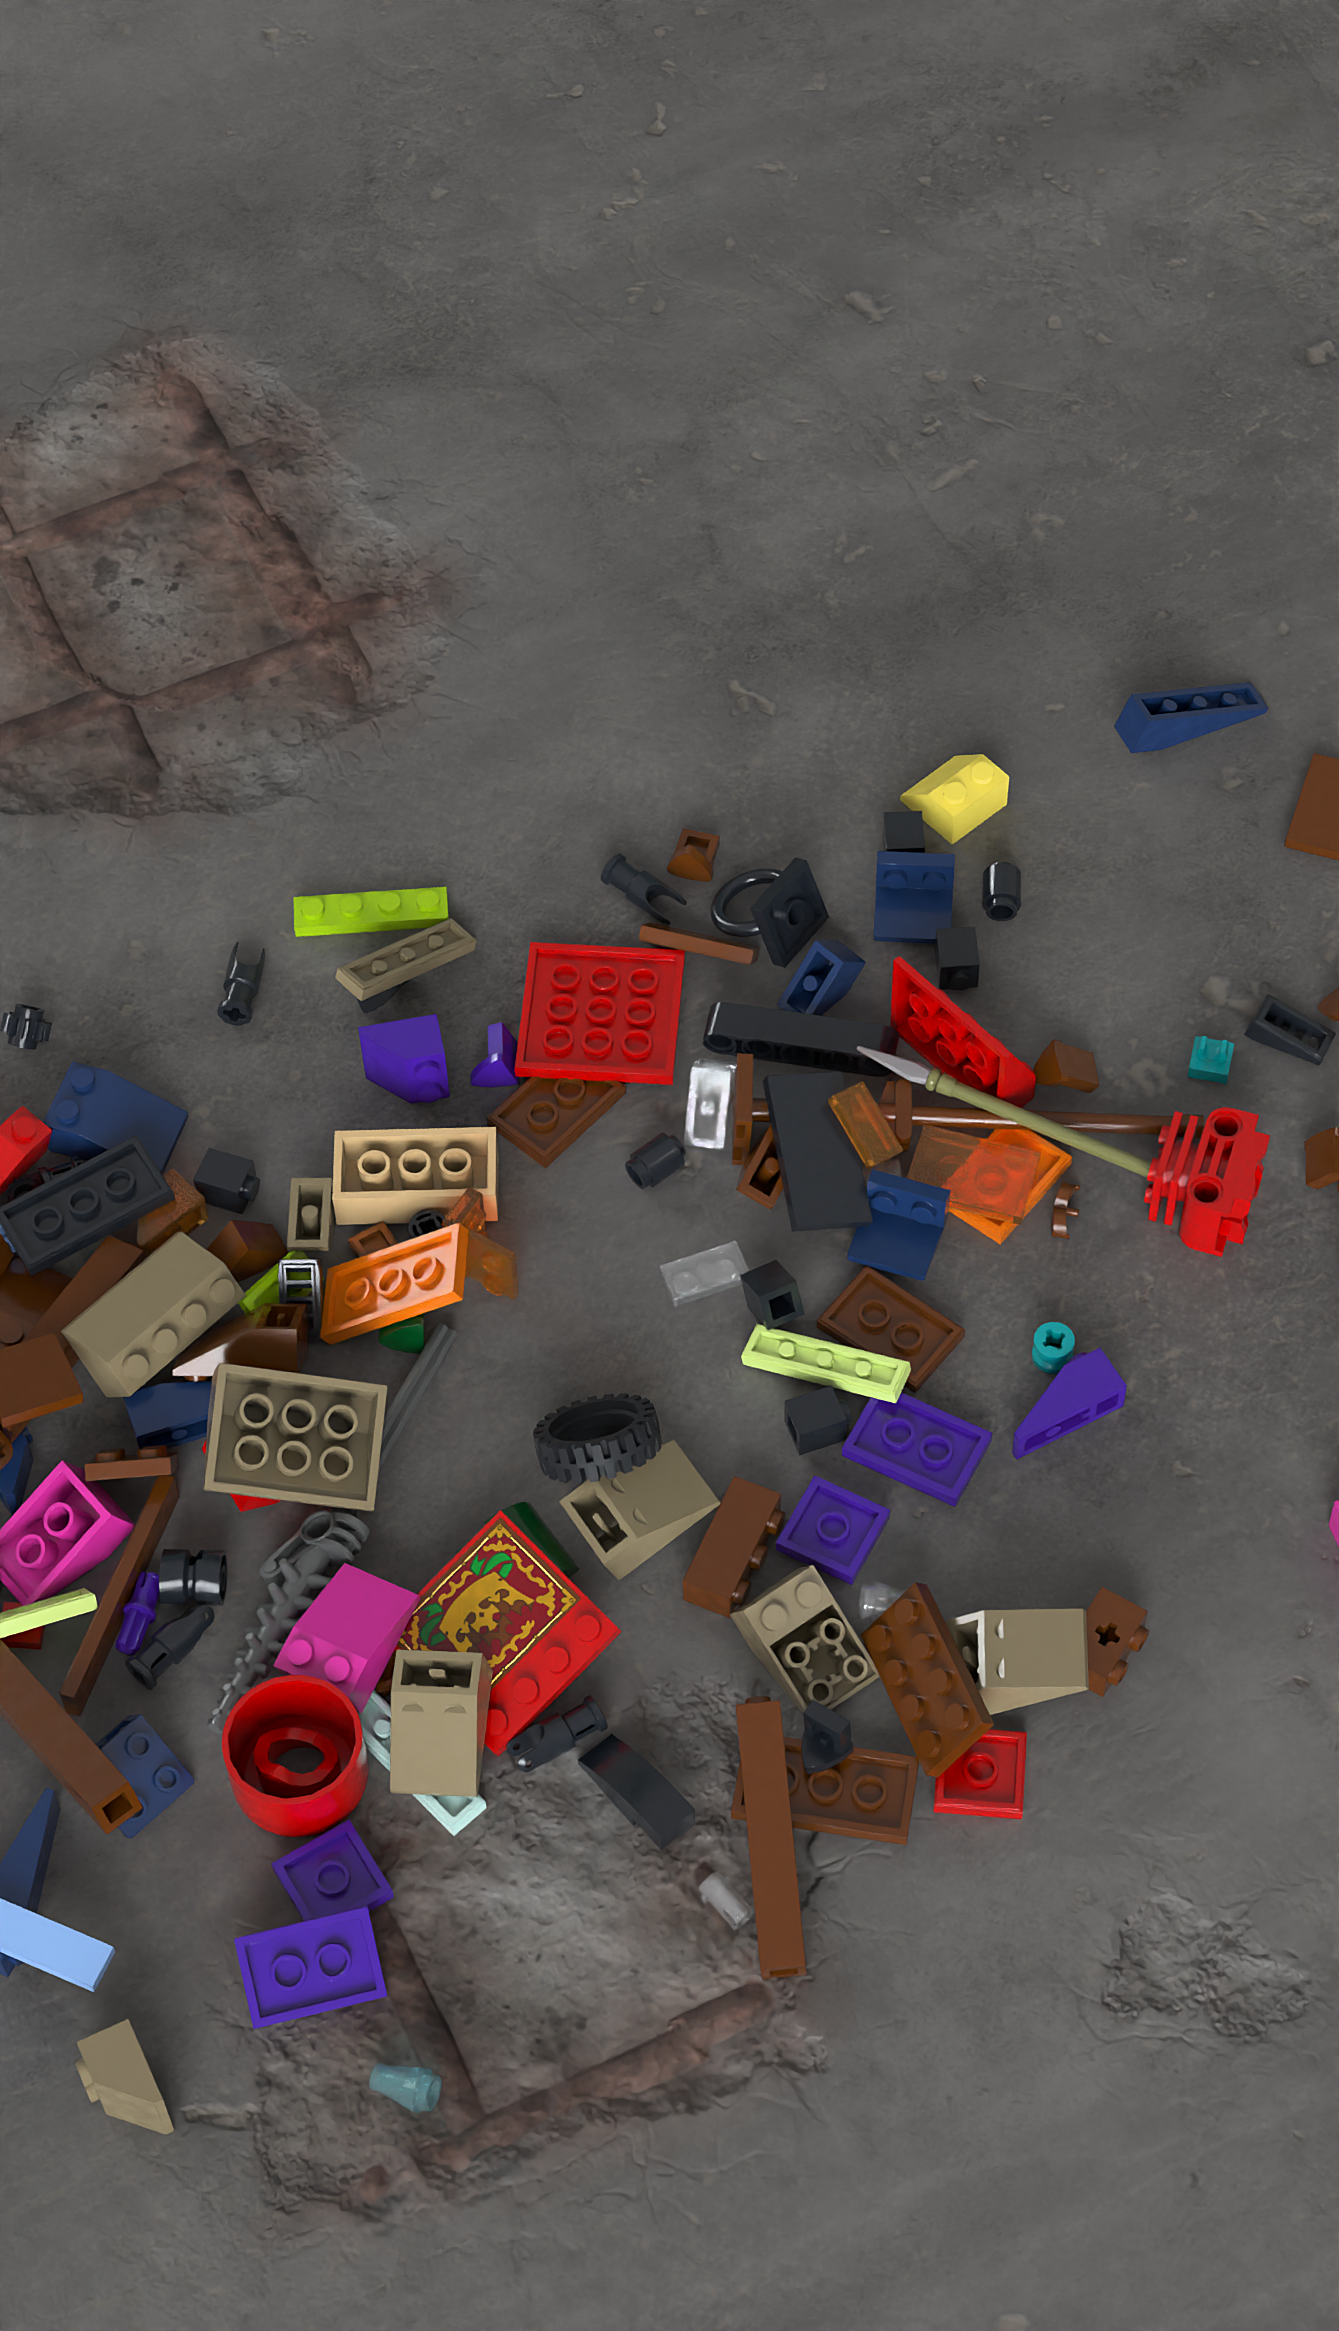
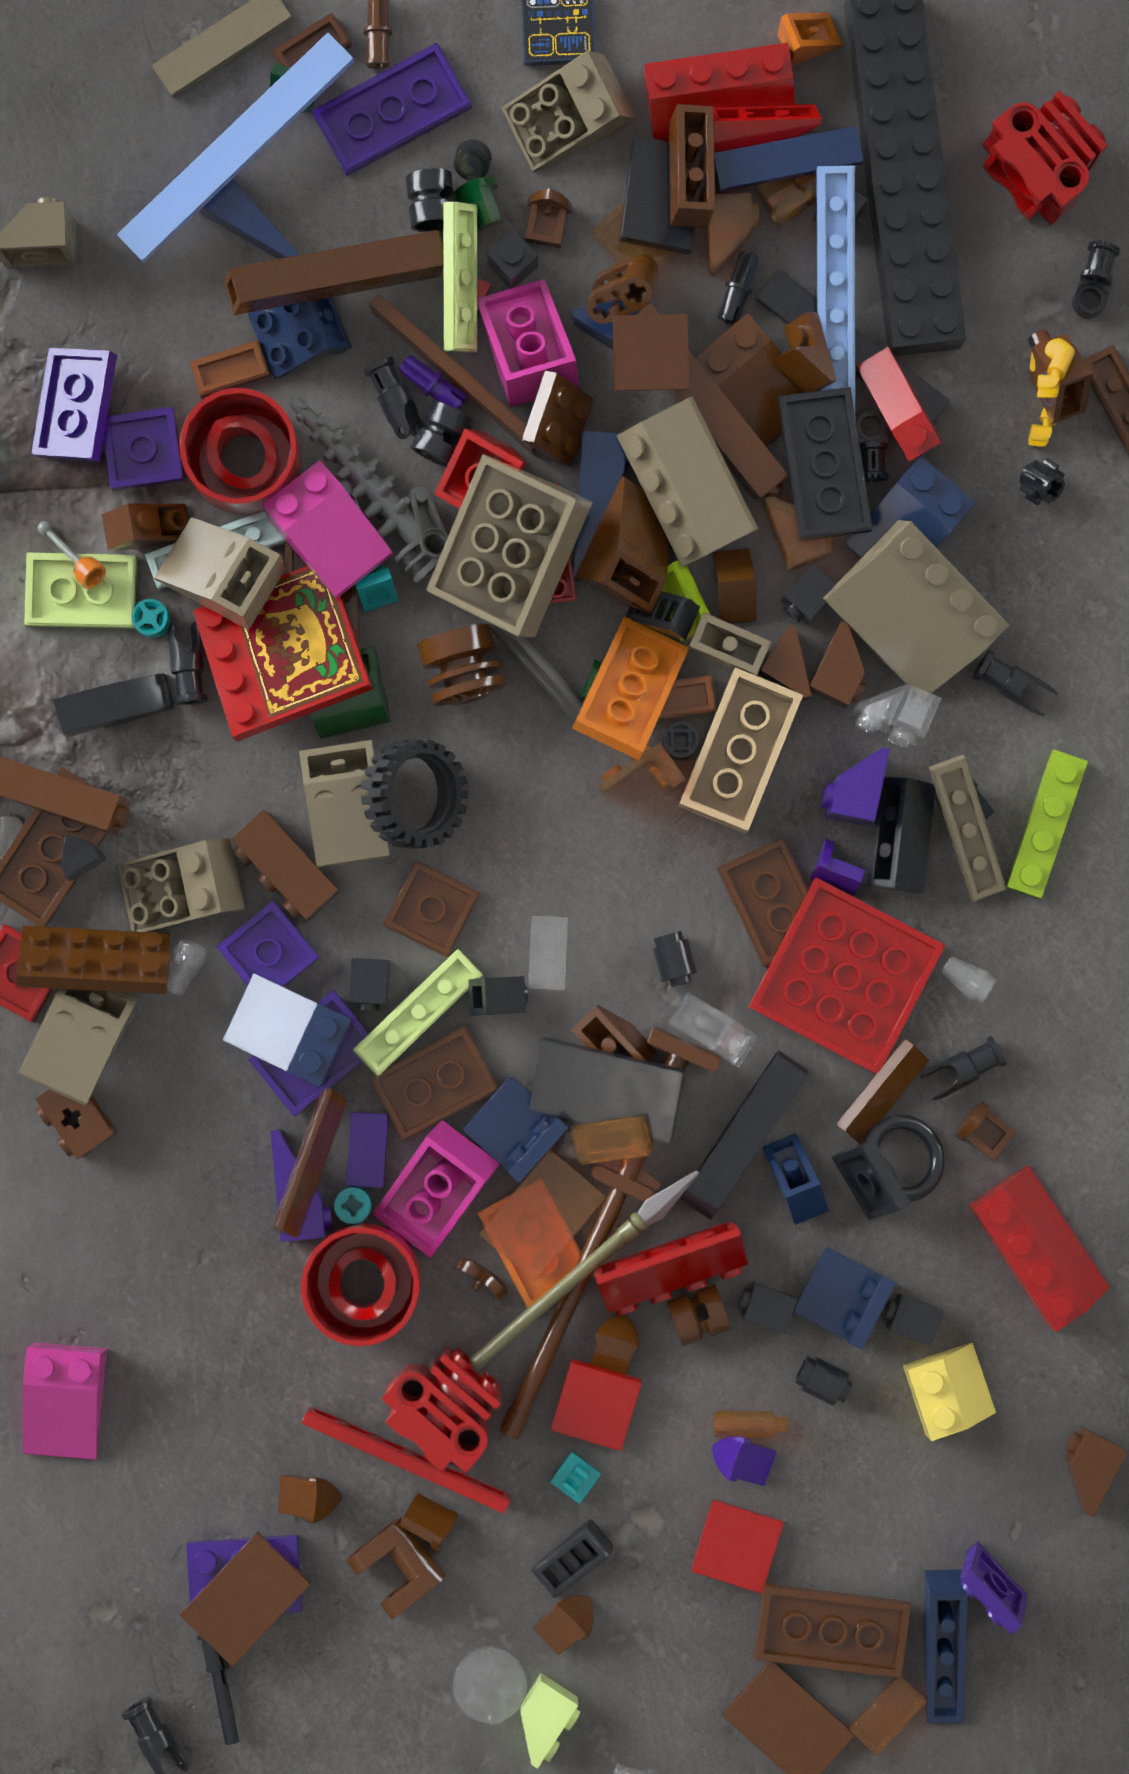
camera: 105 degrees right, 30 degrees up
(201, 1075) = (915, 609): none -> dark tan slope
(202, 1832) = (229, 368): none -> dark orange tile
(220, 1519) = (465, 461): none -> red slope
(290, 1129) = (839, 670): none -> reddish brown slope
(310, 1162) = (787, 665): none -> reddish brown slope
(317, 1051) = (901, 713): none -> clear slope
(392, 1571) = (377, 589): none -> teal tile
(420, 1837) = (143, 525): none -> reddish brown slope
(439, 1452) = (461, 664): none -> reddish brown wheel
(457, 1005) = (902, 835): none -> black brick
(496, 1873) = (87, 570): none -> orange hinge
(520, 1781) = (147, 613): none -> teal wheel
(523, 1885) = (59, 600): none -> yellowish green tile
(554, 912) = (969, 979): none -> clear cone
(711, 1400) = (431, 908): none -> reddish brown tile
(786, 773) = (1039, 1248): none -> red slope
(905, 1461) = (288, 1030): none -> slope
(965, 662) = (1092, 1467): none -> reddish brown slope
(990, 1360) = (367, 1149): none -> dark purple tile
(994, 1007) = (686, 1318): none -> reddish brown wheel
(995, 1276) = (436, 1188): none -> dark pink slope
(1032, 1387) = (309, 1163): none -> reddish brown slope
(1078, 938) = (747, 1424): none -> clear orange cylinder
(1114, 929) = (743, 1459): none -> dark purple tile
(1116, 688) = (994, 1588): none -> dark purple plate
(1131, 1064) = (596, 1404): none -> red tile
(1135, 1258) = (345, 1319): none -> red piece
(1197, 907) = (737, 1546): none -> red tile
(1229, 802) = (832, 1630): none -> reddish brown plate
(1279, 739) = (887, 1714): none -> clear orange tile
(1279, 1205) = (406, 1459): none -> red tile

